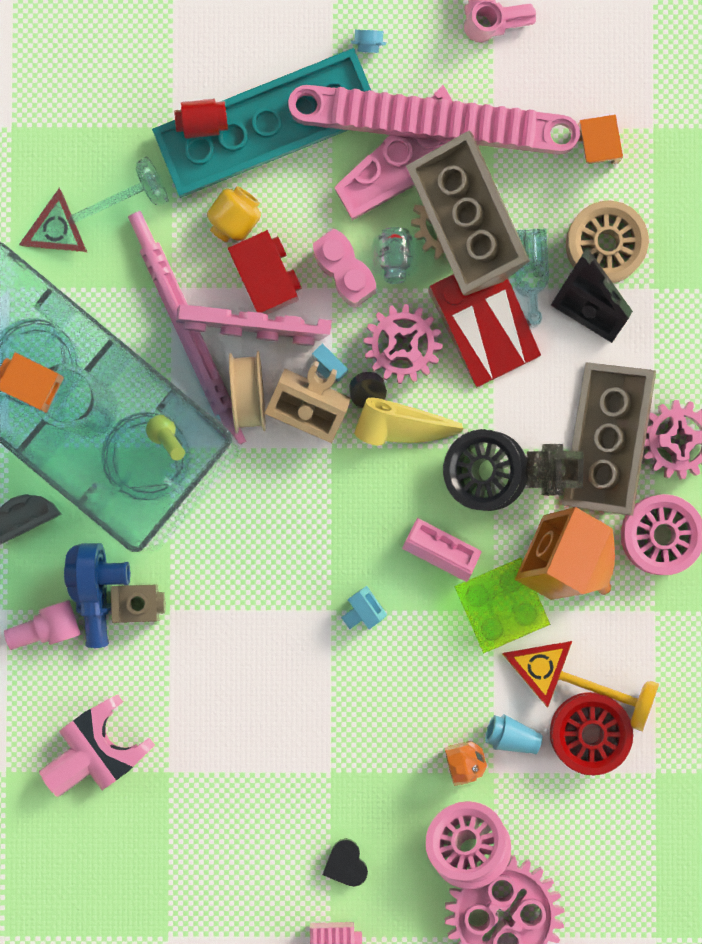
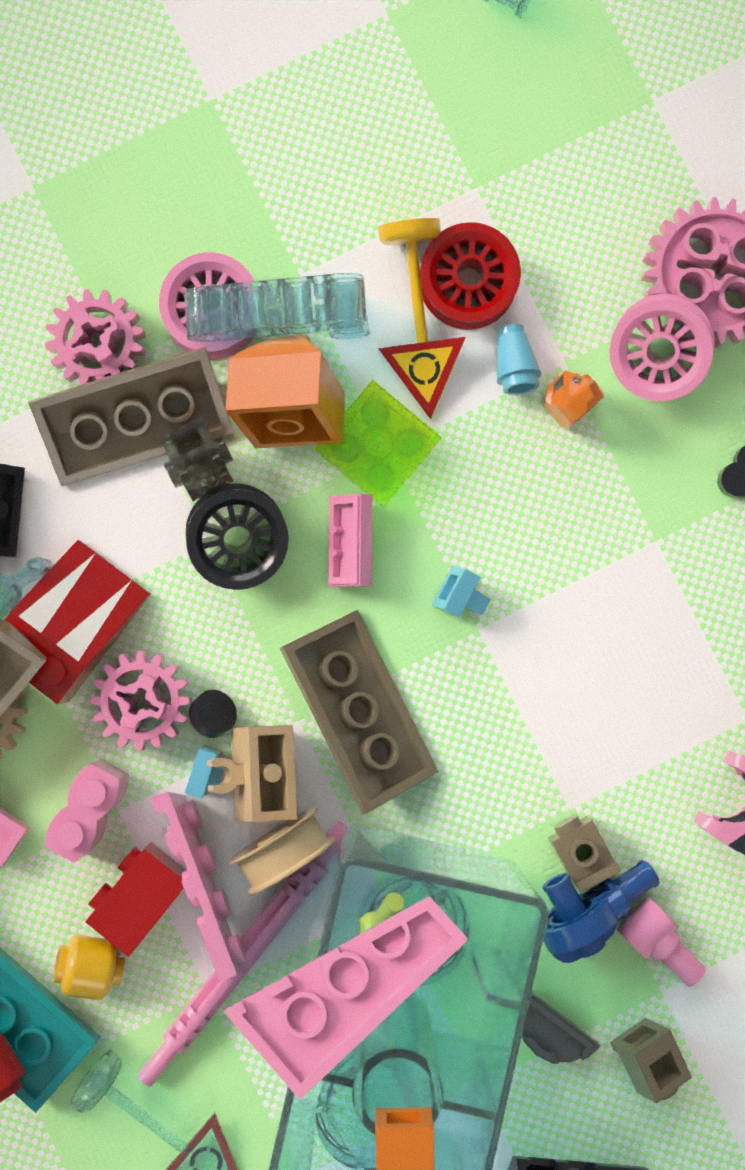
camera: 125 degrees left, 0 degrees up
(146, 387) = (337, 1000): none -> bright pink wing
(317, 495) = (359, 711): none -> dark tan slope
(395, 255) = (43, 760): clear light blue head -> none
(399, 423) = (232, 658): light yellow piece -> none
(633, 582) = (279, 308): none -> clear light blue beam

